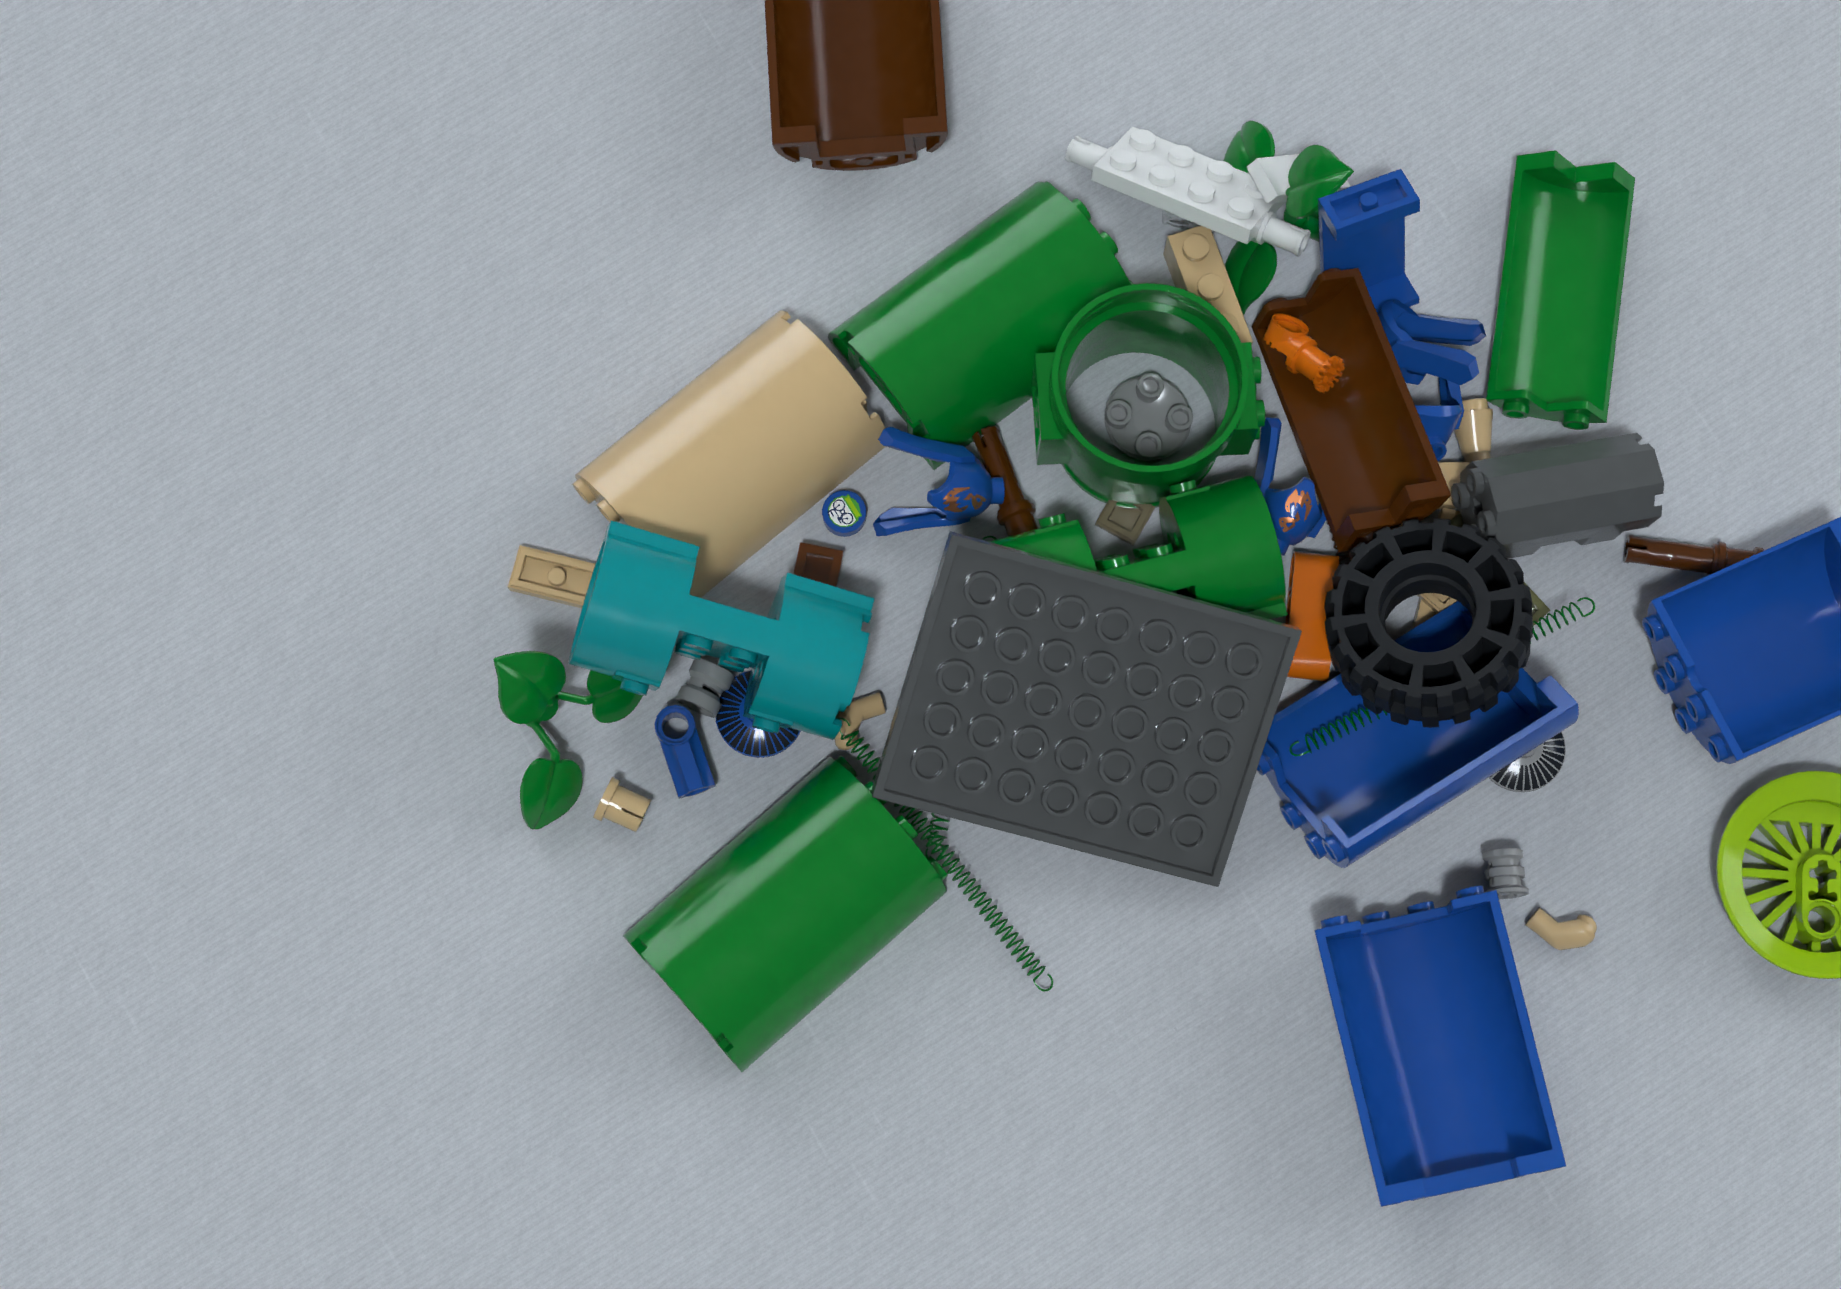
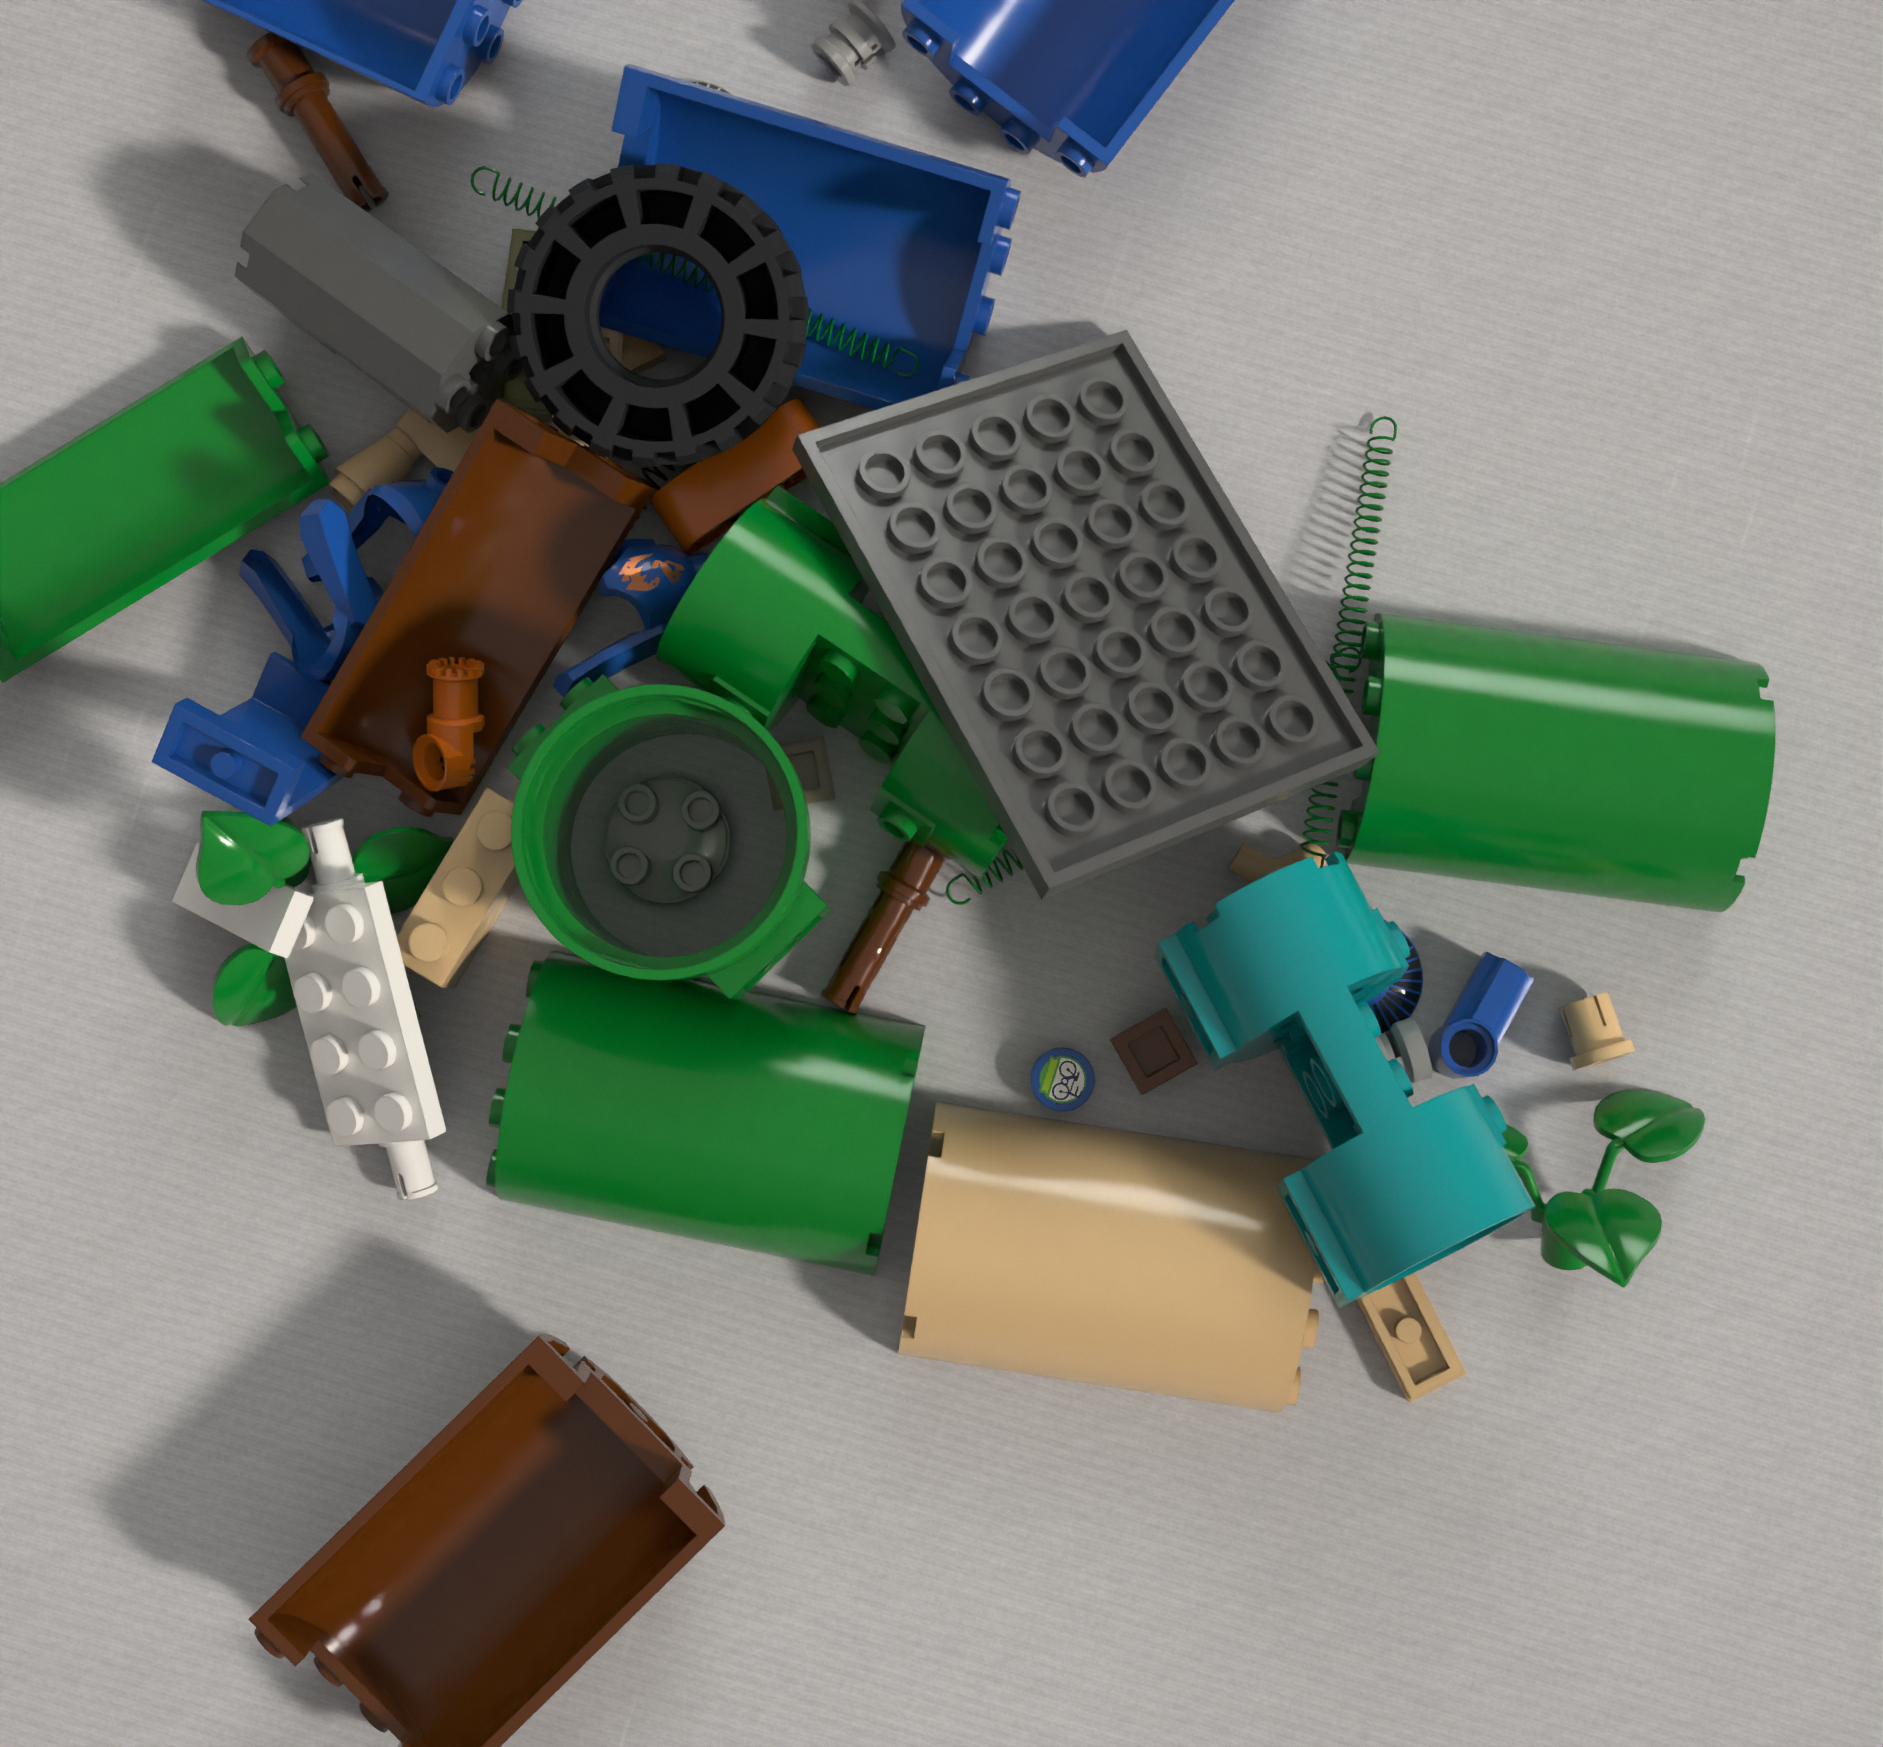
camera: 125 degrees left, 10 degrees up
(962, 496) = (940, 955): blue piece -> none

